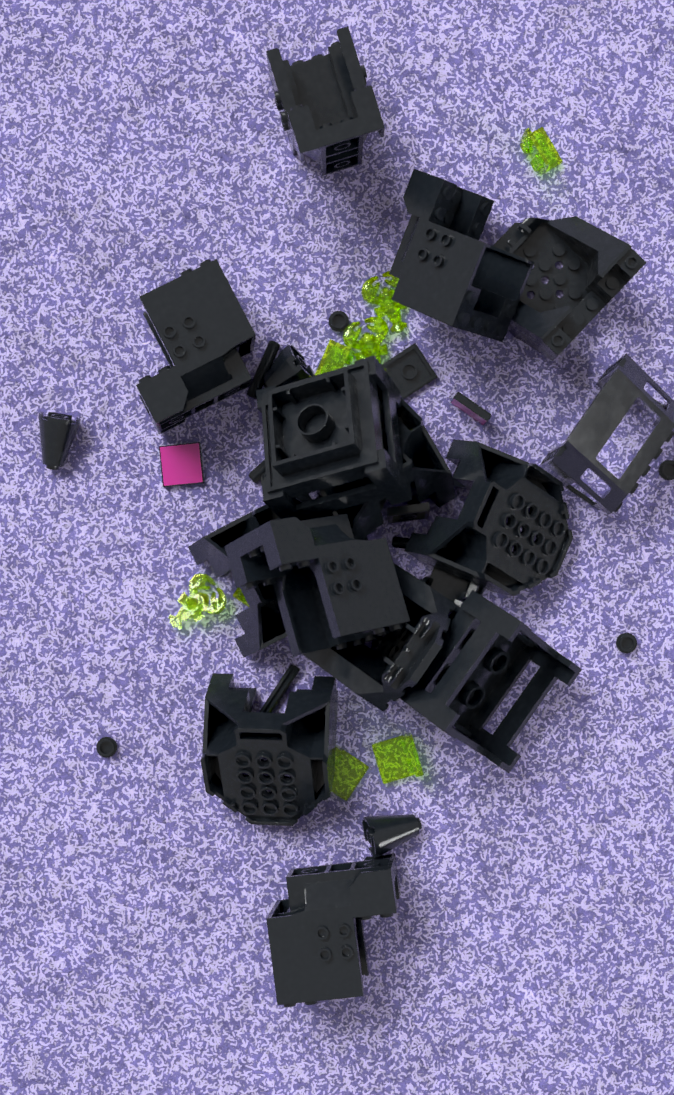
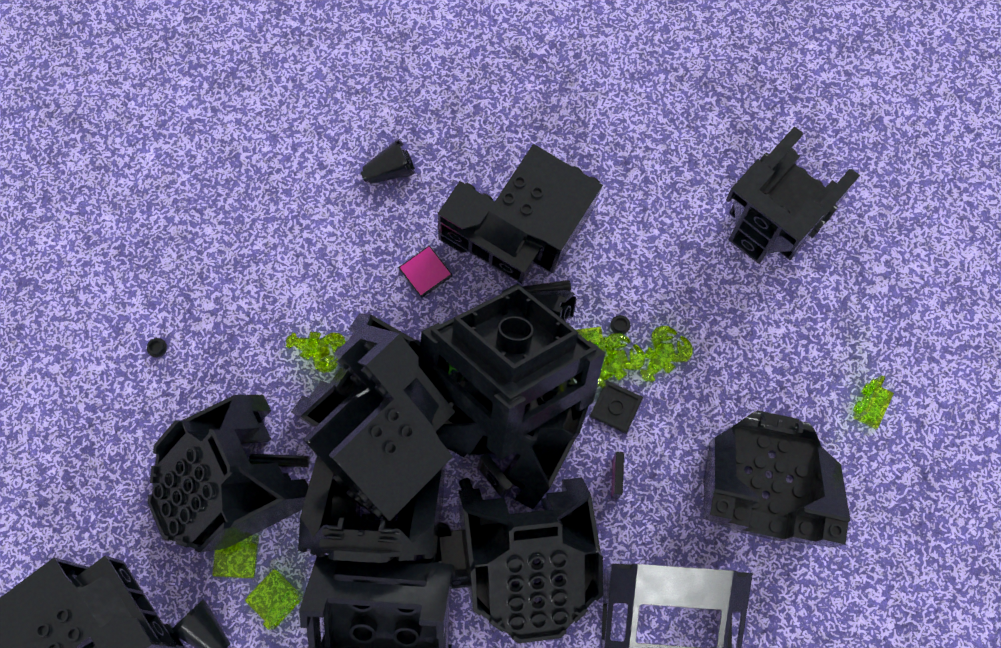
camera: 65 degrees right, 15 degrees down
(446, 266) = (723, 378): black piece -> none

